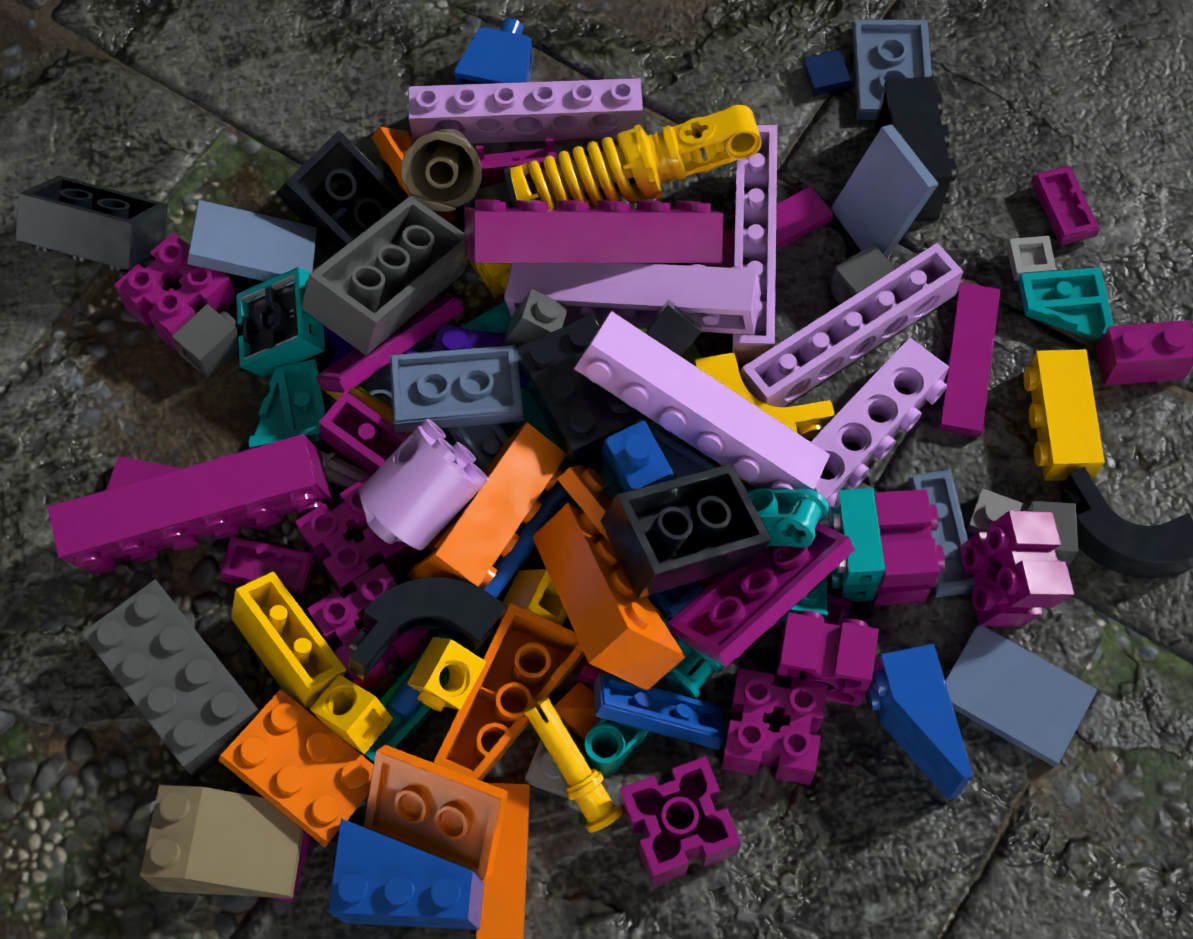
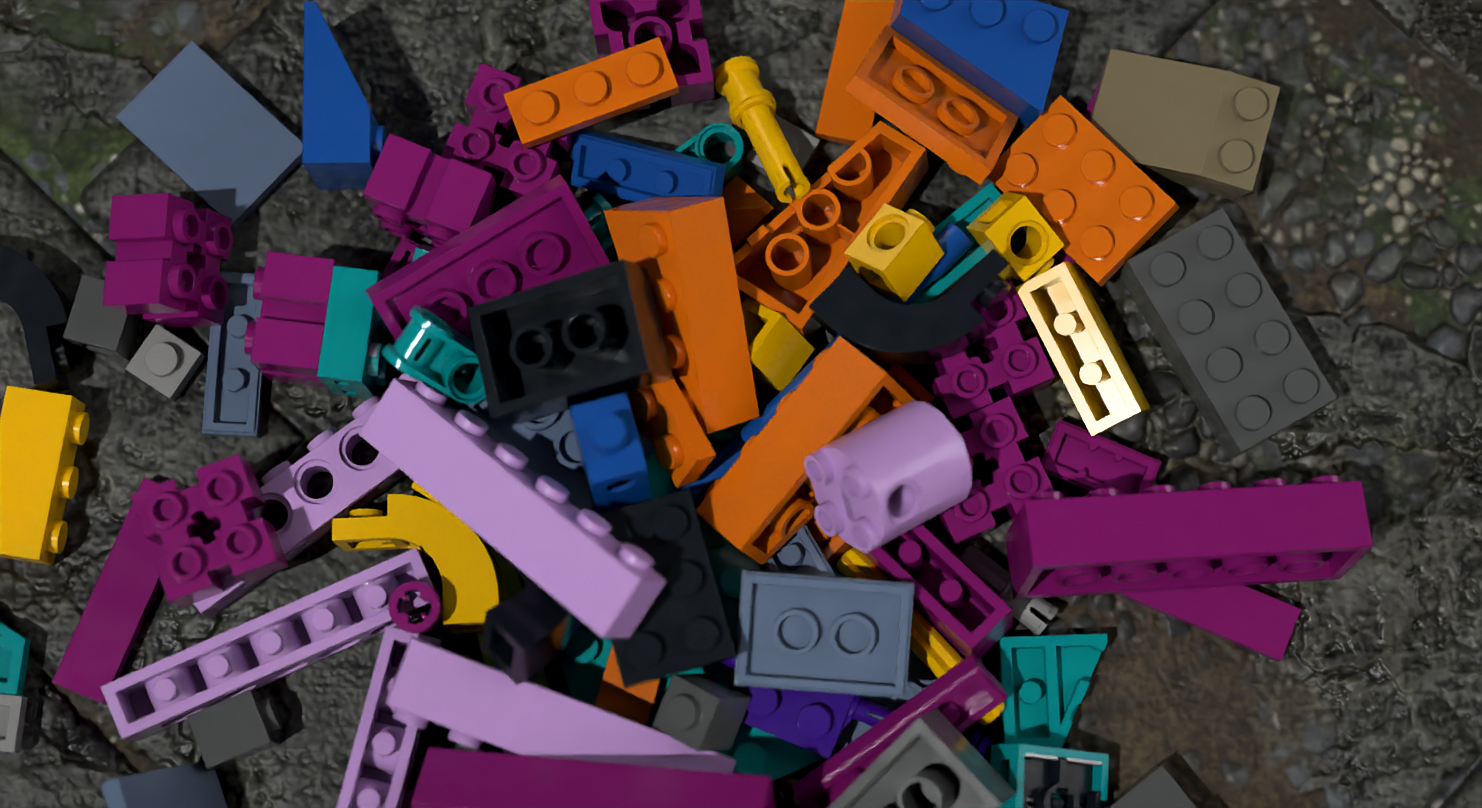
camera: 170 degrees left, 15 degrees up
(717, 753) = (591, 93): none -> orange plate
(747, 360) = (404, 620): none -> magenta bush
(919, 377) = (175, 516): none -> magenta brick

